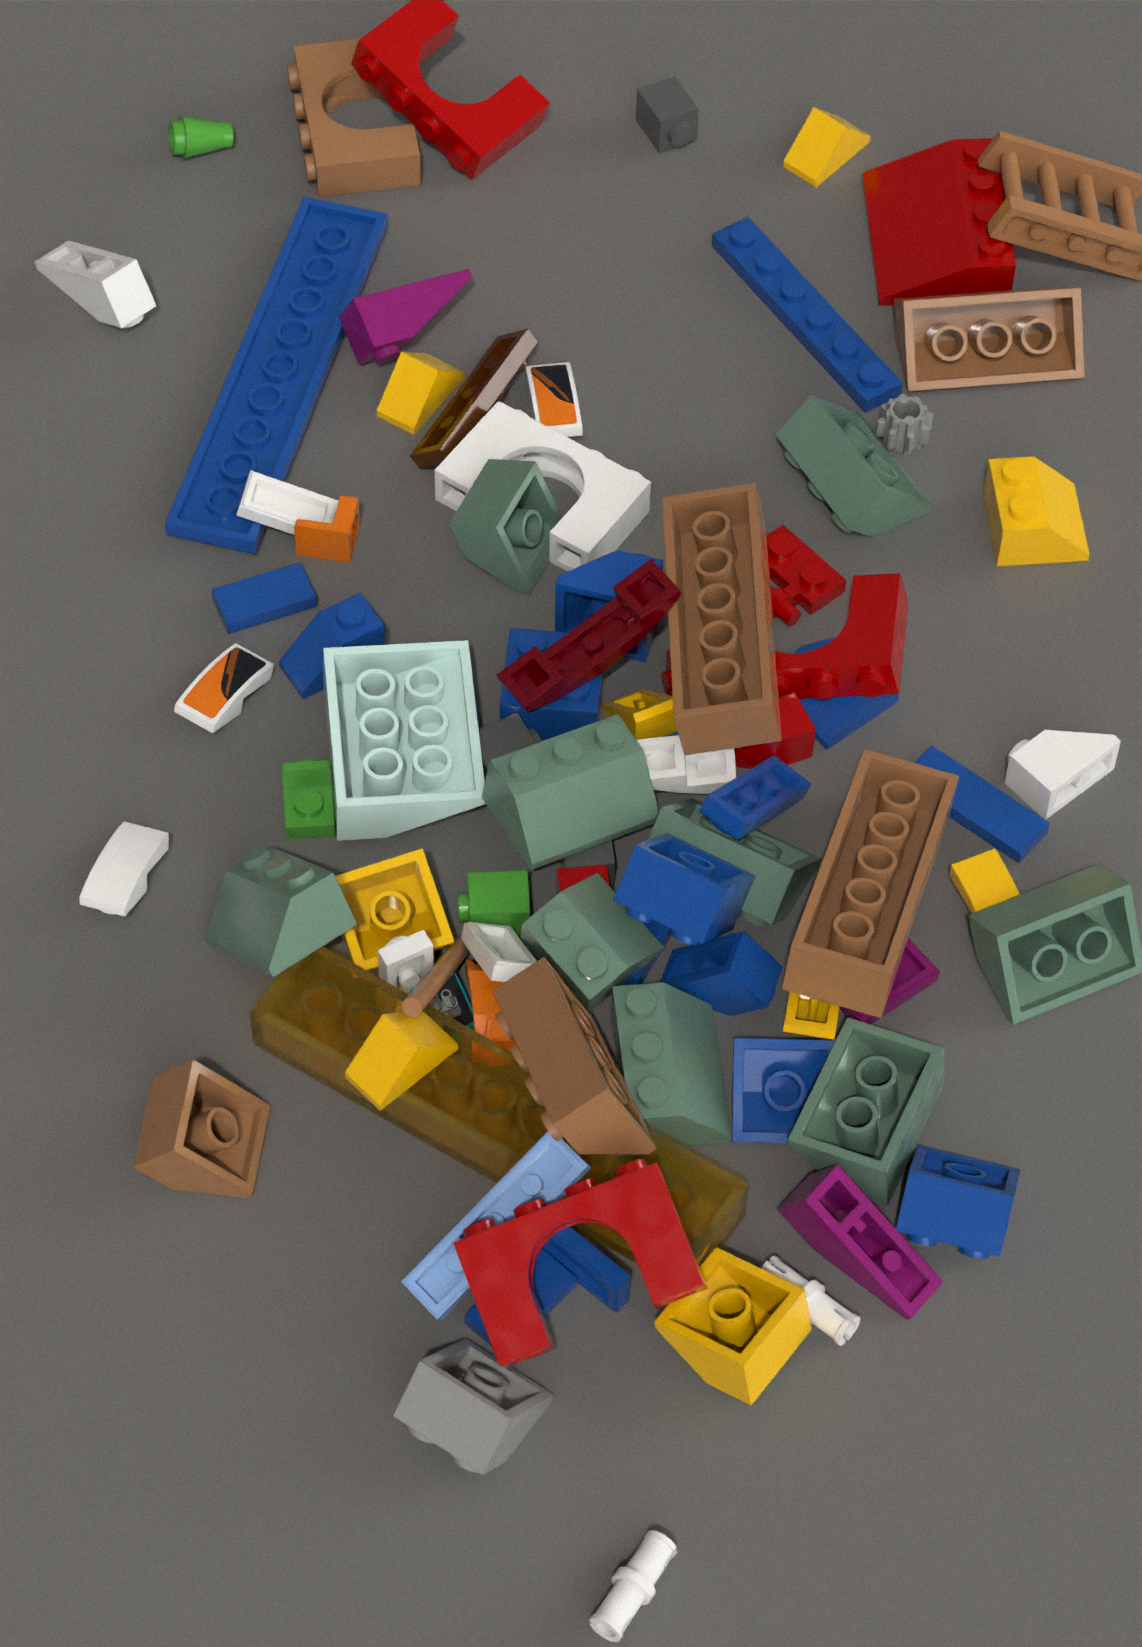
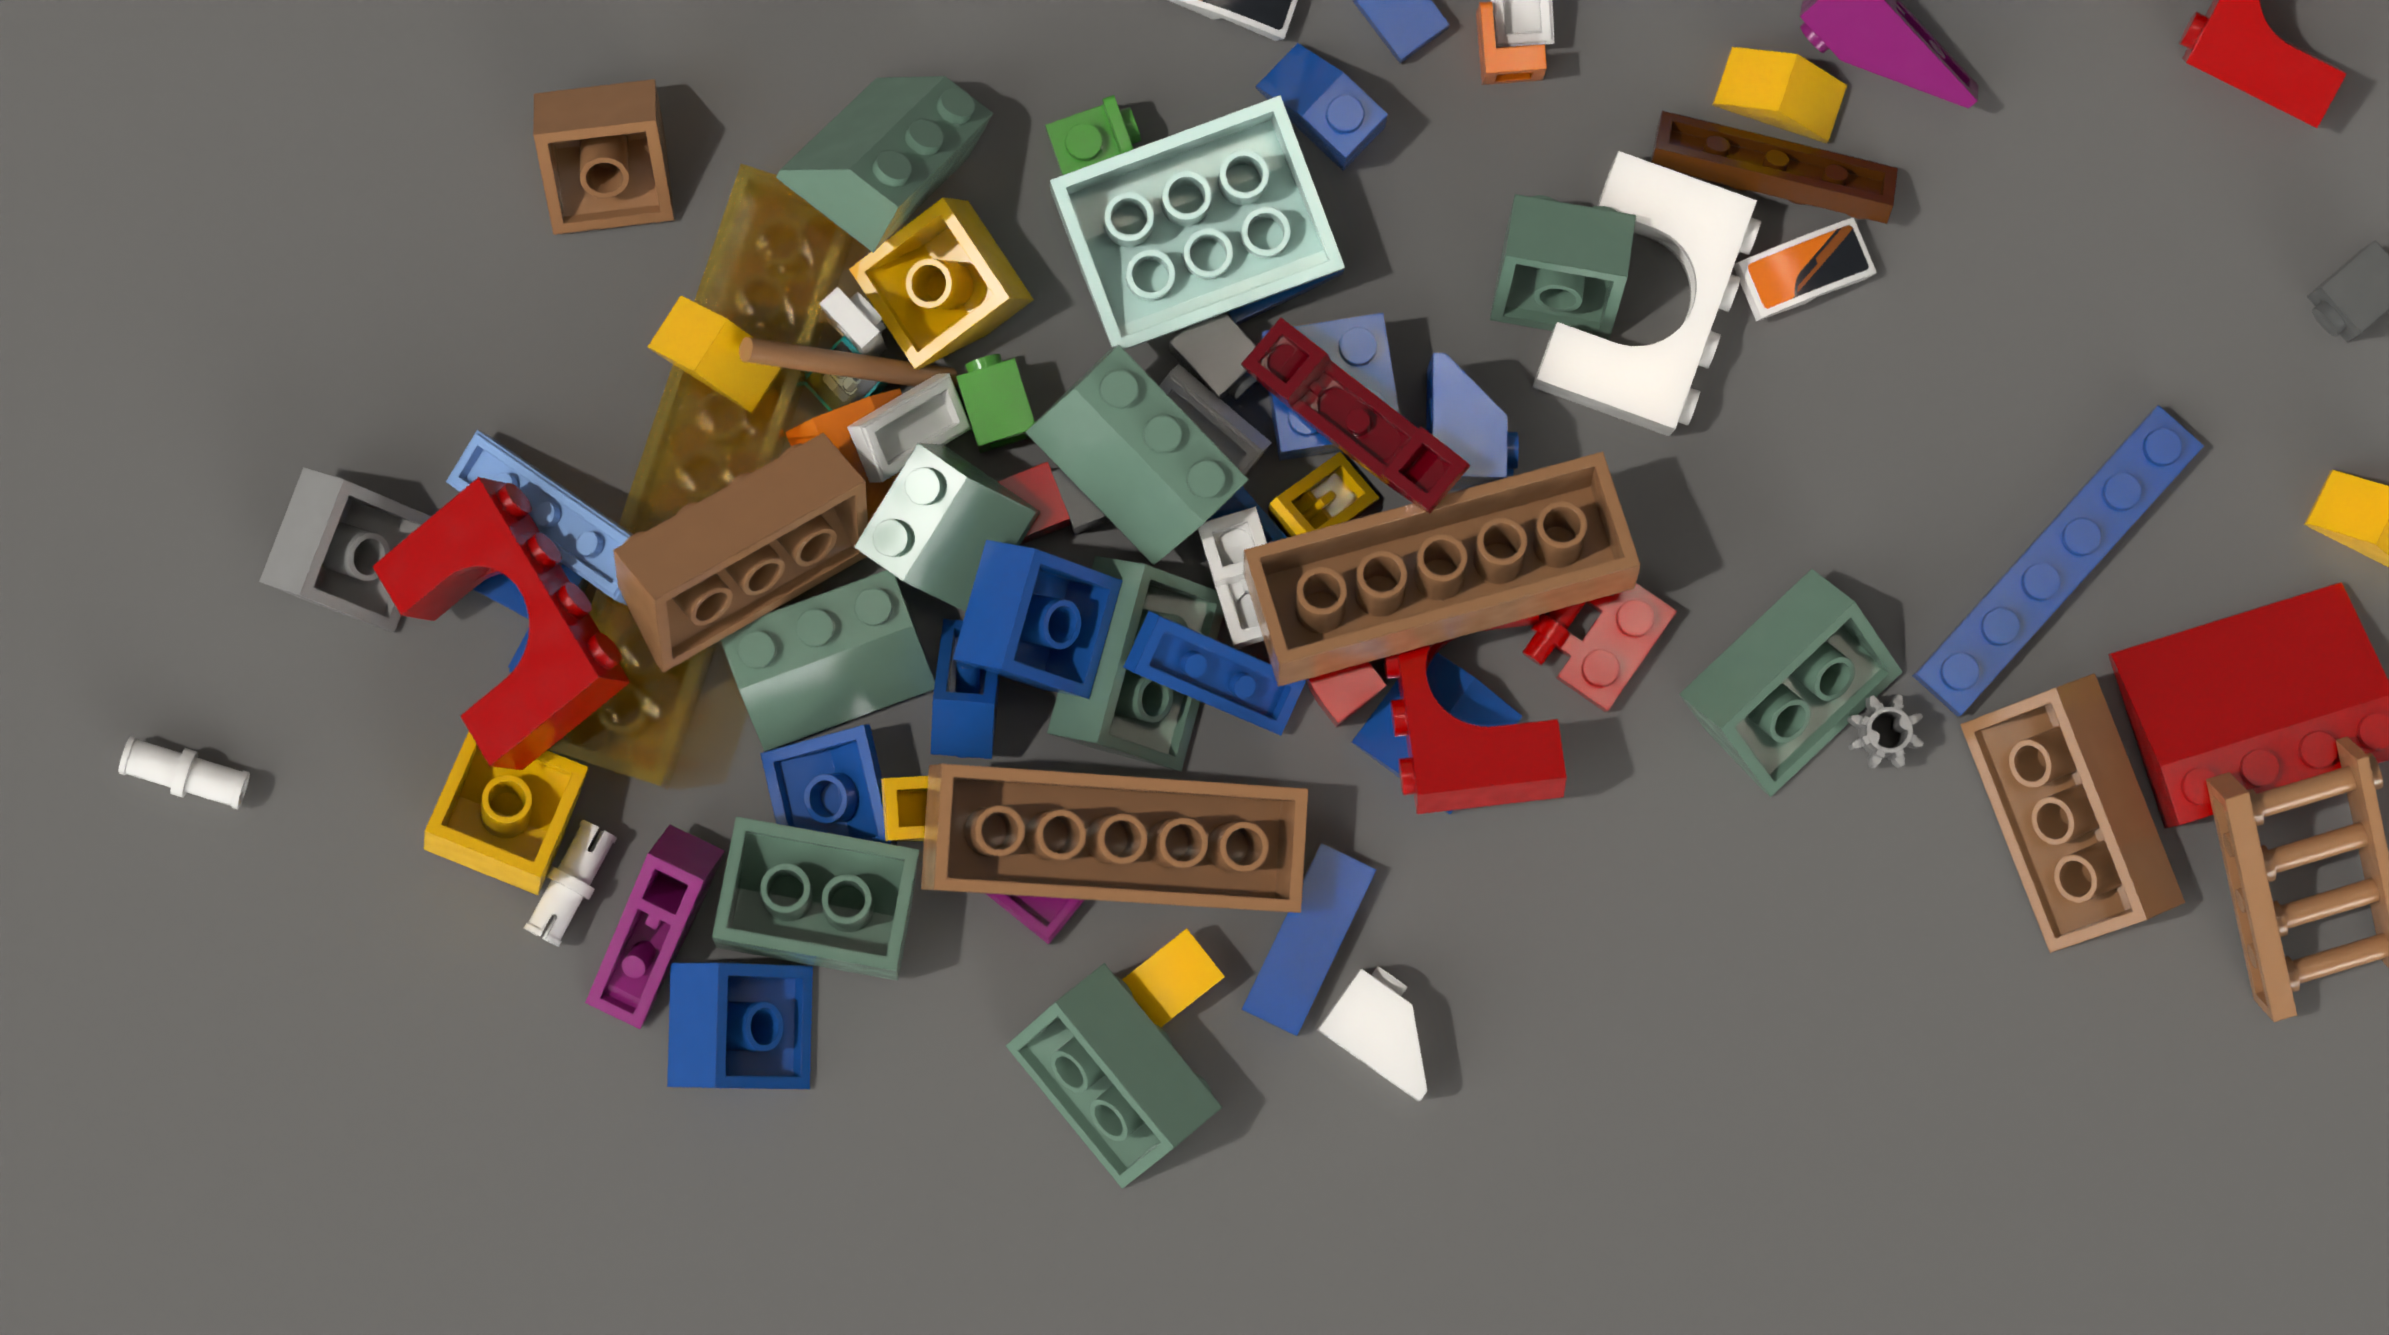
camera: 70 degrees right, 30 degrees up
(1032, 513) = (1782, 932): yellow slope -> none

